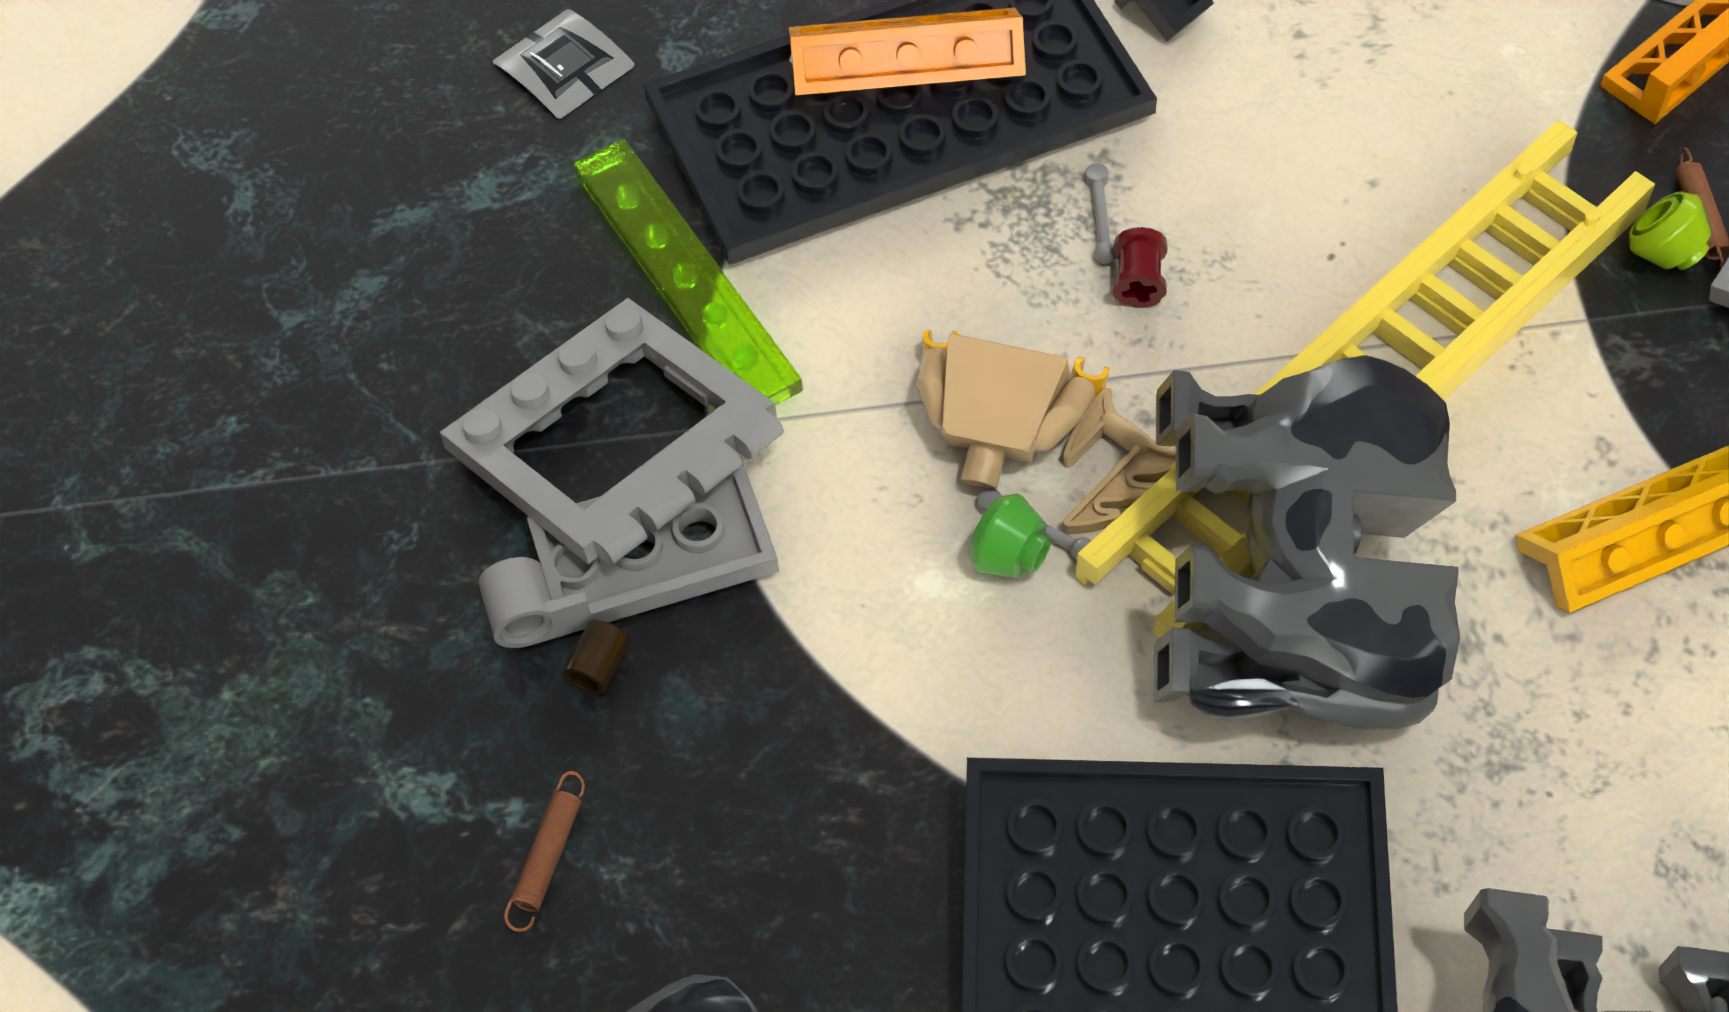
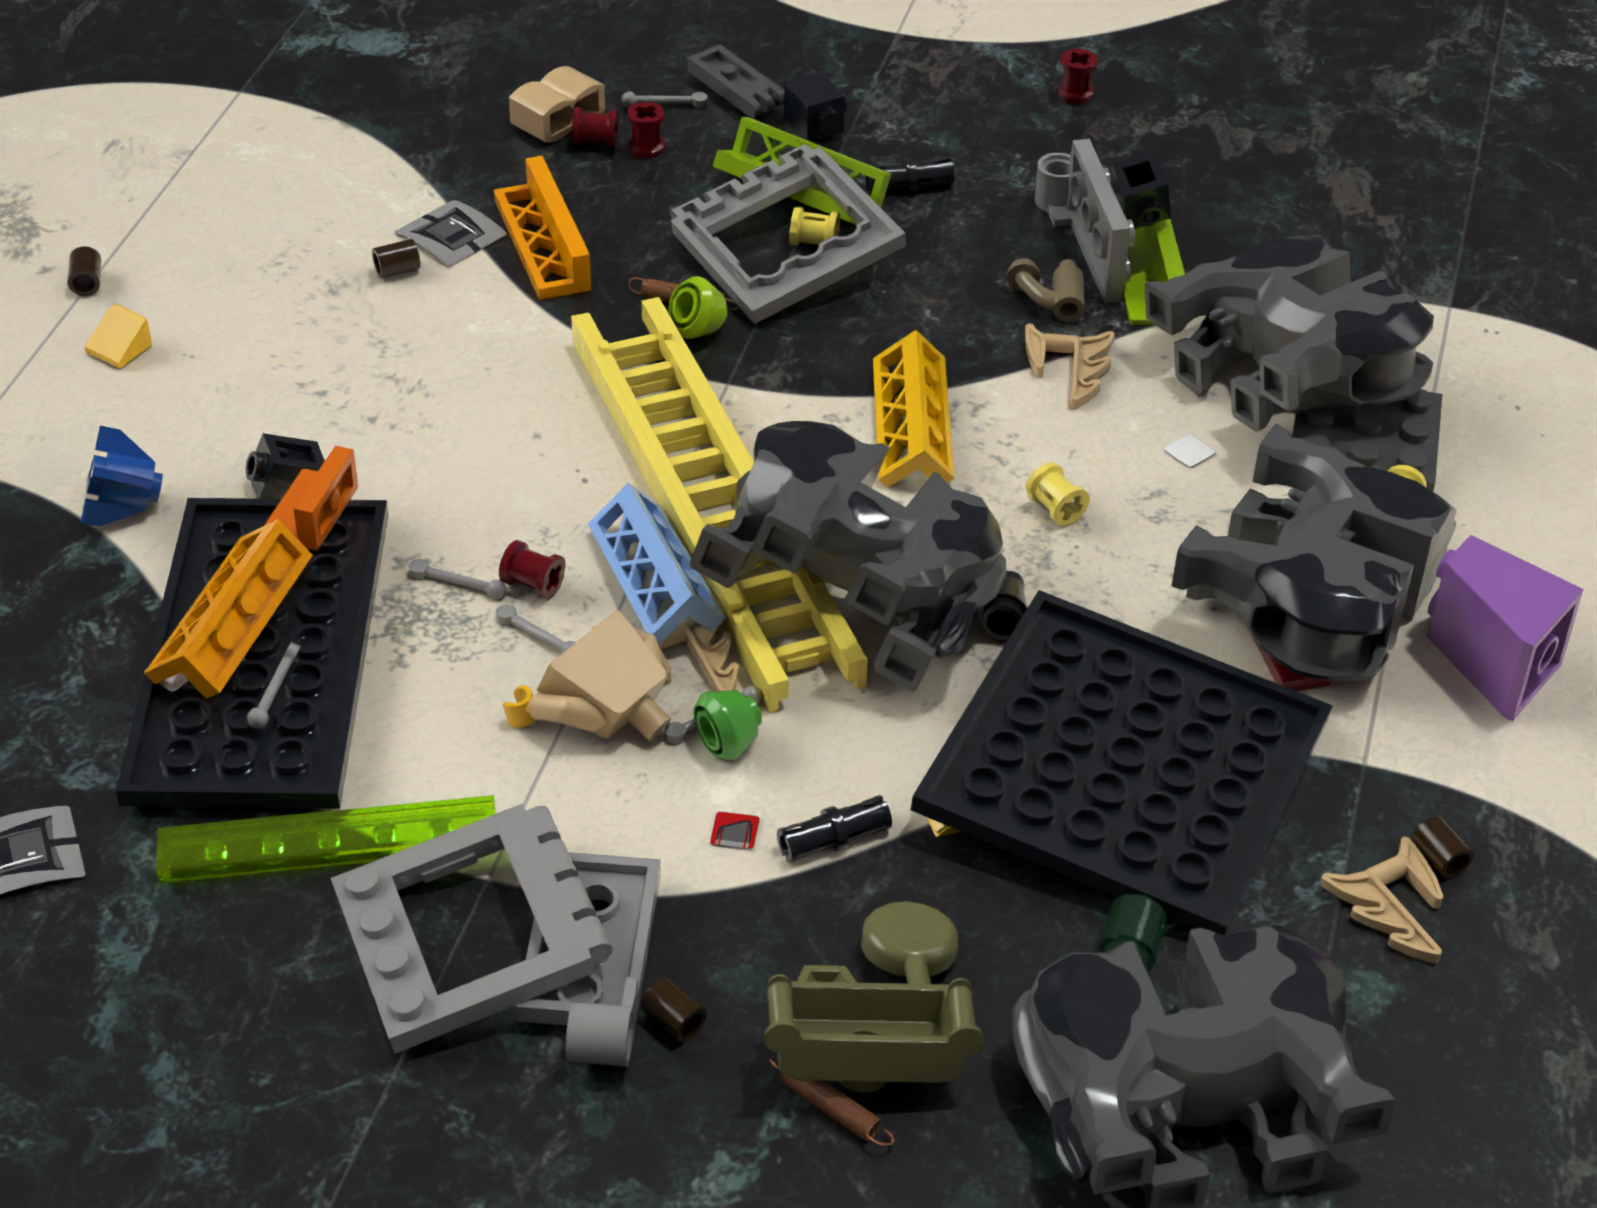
camera: 70 degrees left, 15 degrees down
(619, 855) = (878, 1031): none -> olive piece
(784, 140) = (258, 716): none -> light grey hinge
(883, 615) = (735, 830): none -> sticker
(920, 706) = (834, 828): none -> black pin
(1074, 280) = (507, 615): none -> light grey hinge
(1101, 42) = (318, 498): none -> orange panel
(1225, 356) = (659, 551): none -> light blue fence
(1372, 746) = (1006, 609): none -> black cone
(1607, 734) = (1057, 494): none -> light yellow bush

